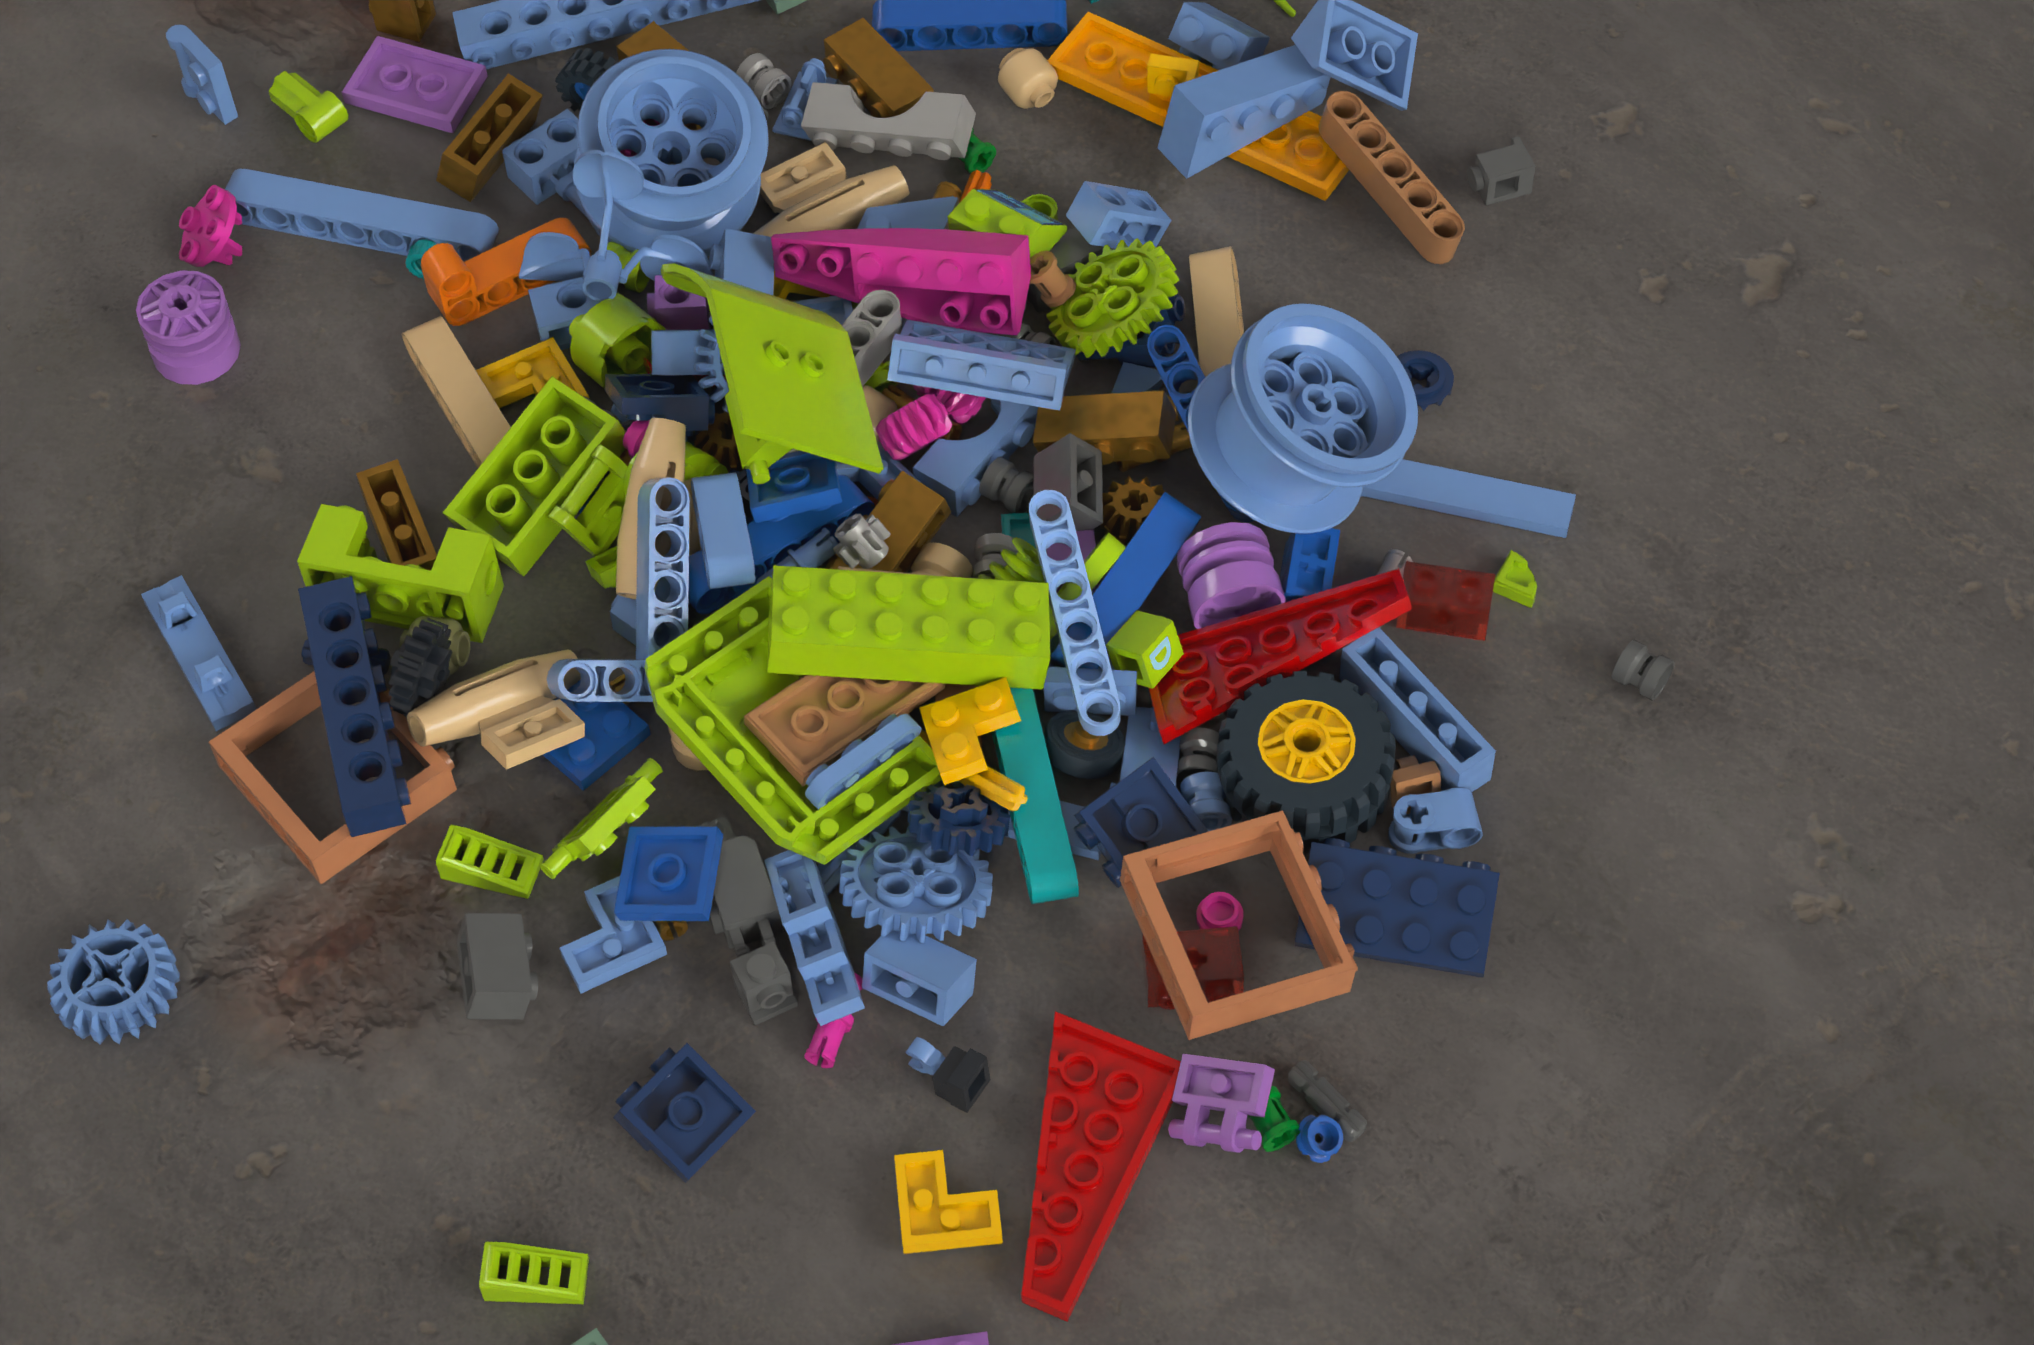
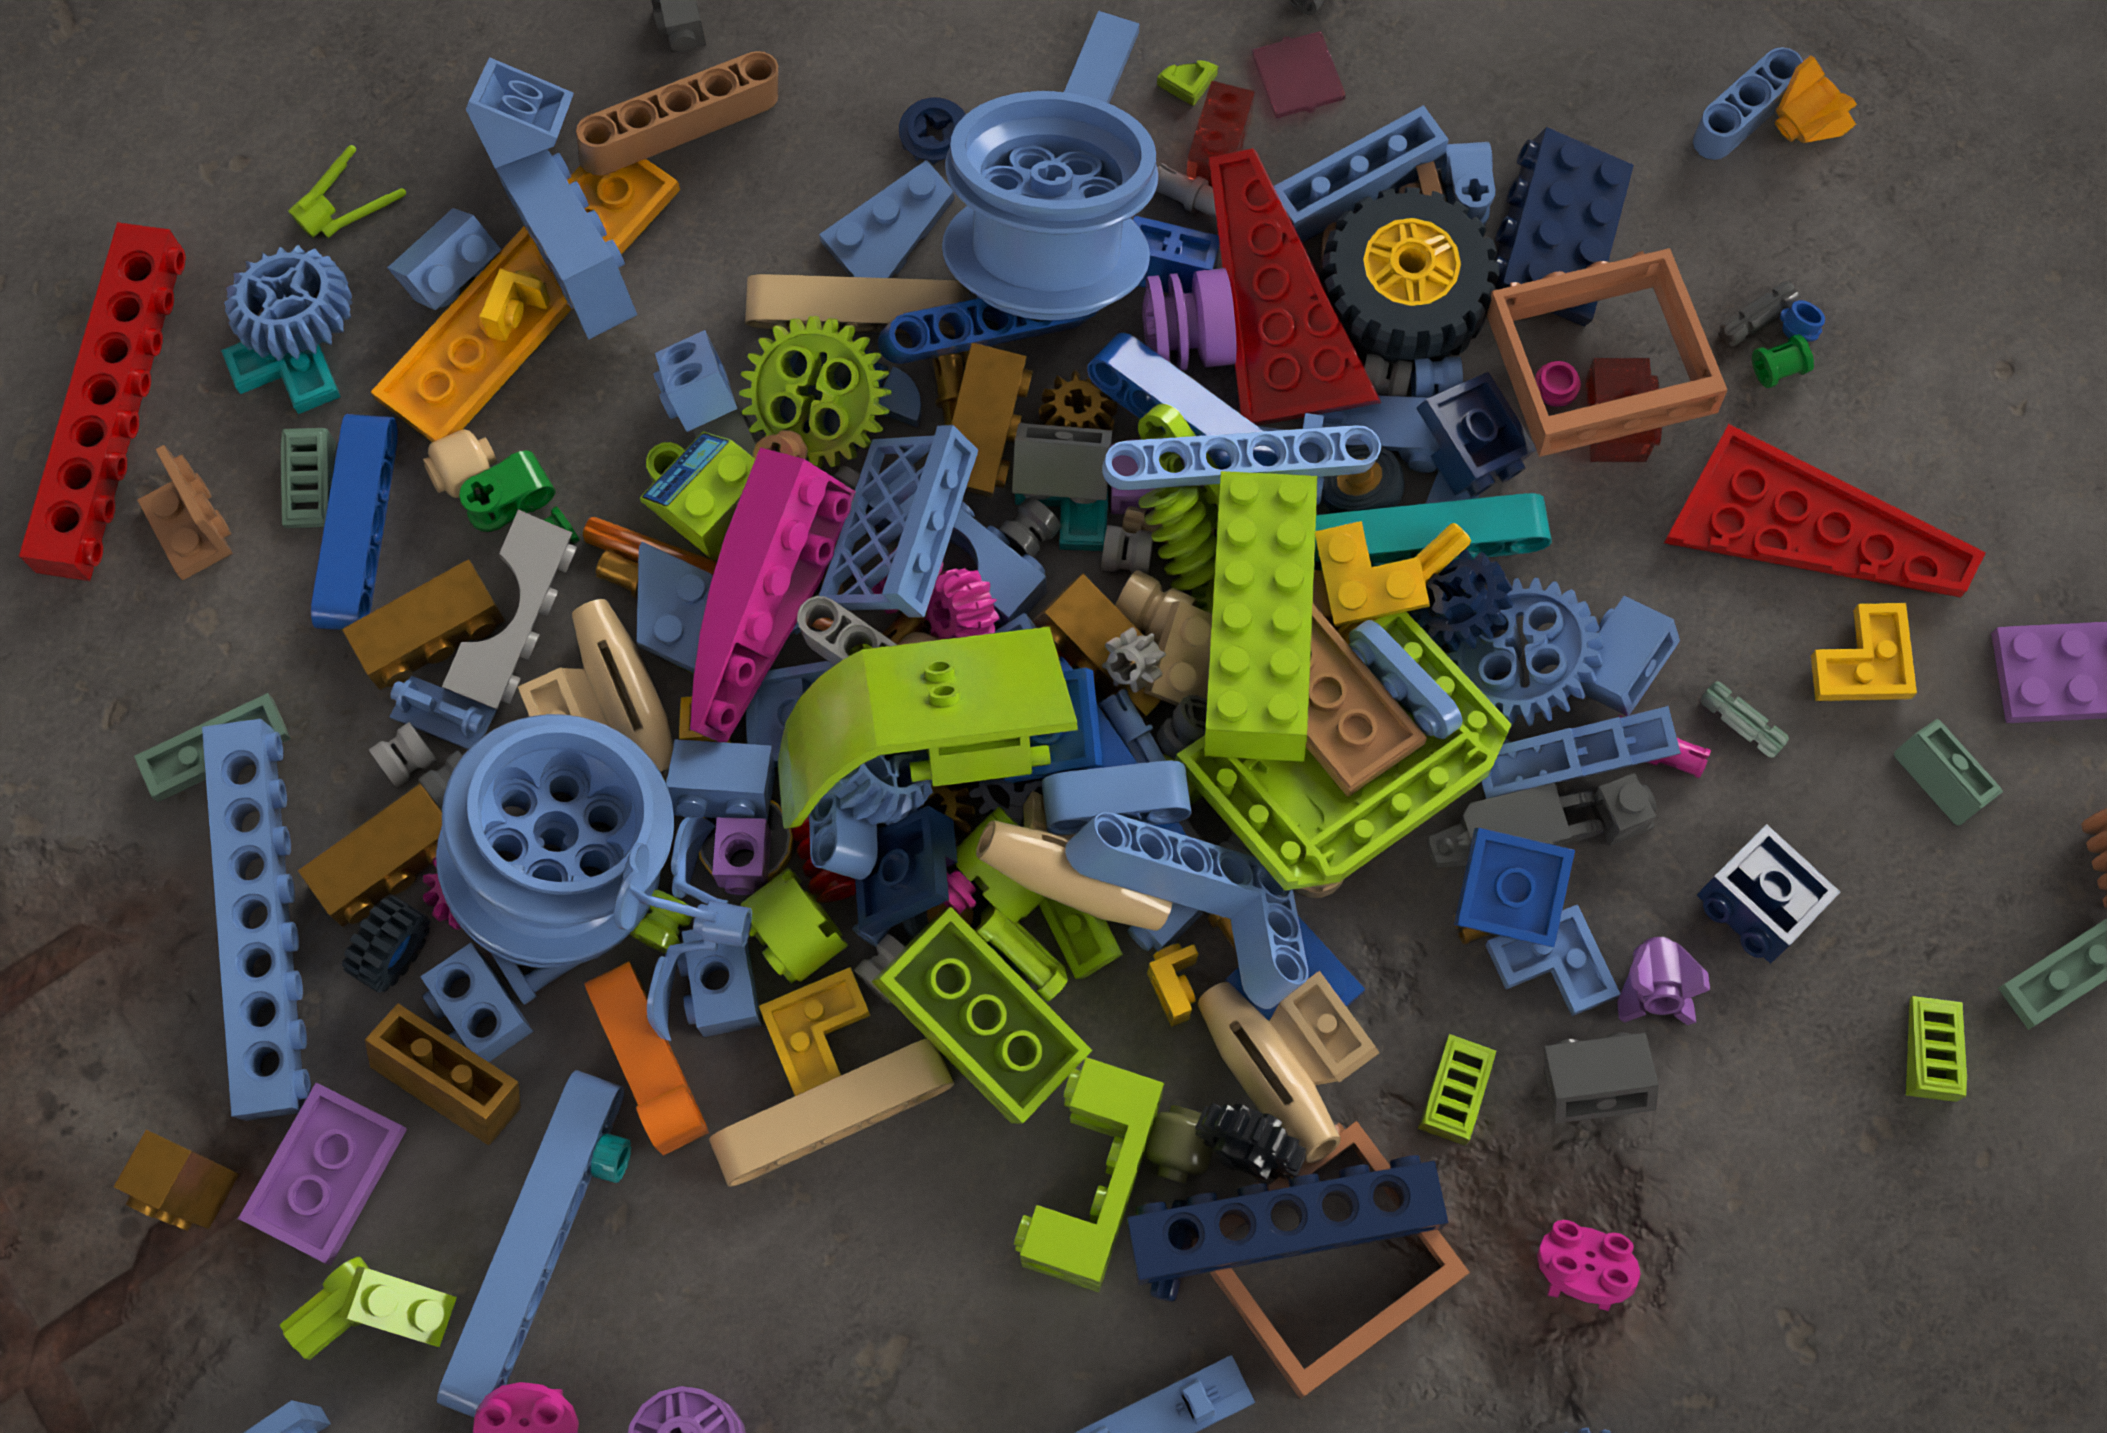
camera: 85 degrees left, 15 degrees up
(304, 137) = (398, 1306): none -> lime plate
(327, 944) = (1588, 1264): none -> dark pink plate
(396, 516) = (1024, 1179): pearl gold brick -> none
(579, 627) = (1173, 991): none -> yellow bracket
(593, 1017) = (1662, 982): none -> medium lavender brick
(596, 829) = (1434, 958): lime plate -> none
(829, 1292) = (1947, 772): none -> sand green slope
(869, 1096) = (1744, 719): none -> sand green axle
(955, 1078) = (1727, 636): black piece -> none
(1007, 113) = (507, 487): none -> green piece
(1146, 646) = (1268, 403): lime brick -> none
(1222, 1086) = (1767, 389): medium lavender plate -> none
(1542, 675) = (1298, 74): none -> clear pink piece
(1579, 1137) = (1813, 106): none -> light orange brick
(1582, 1098) = (1734, 116): none -> medium blue beam

